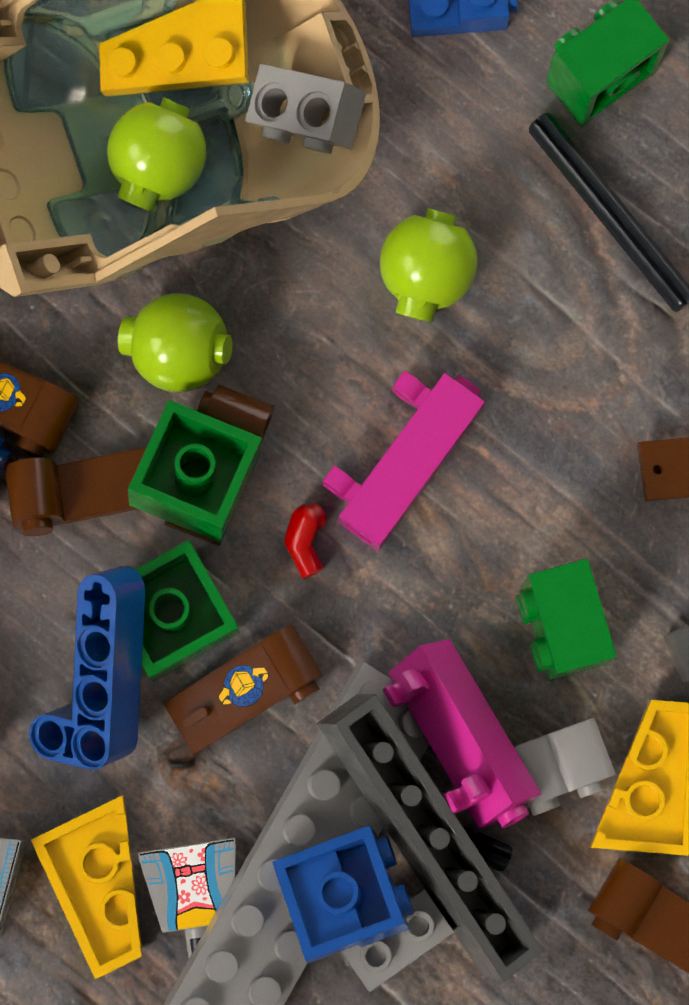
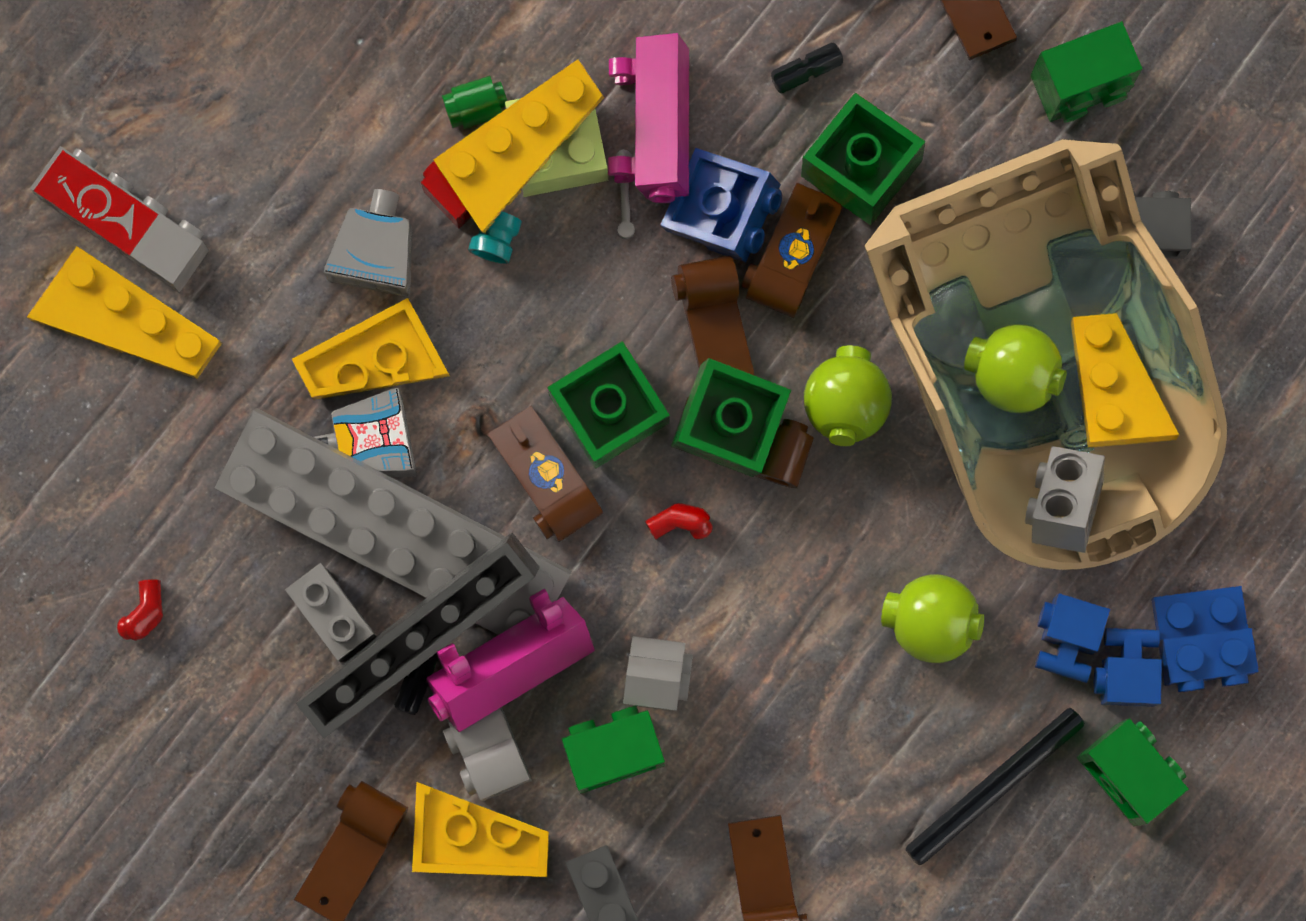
camera: 90 degrees right, 0 degrees up
(107, 676) = (546, 351): blue beam -> none
(343, 893) = (365, 561): blue plate -> none
(412, 458) = (753, 610): dark pink brick -> none
(443, 115) = (1075, 628): none -> blue brick
(481, 568) = (657, 673): none -> light grey brick
(500, 59) = (1129, 678): none -> blue brick

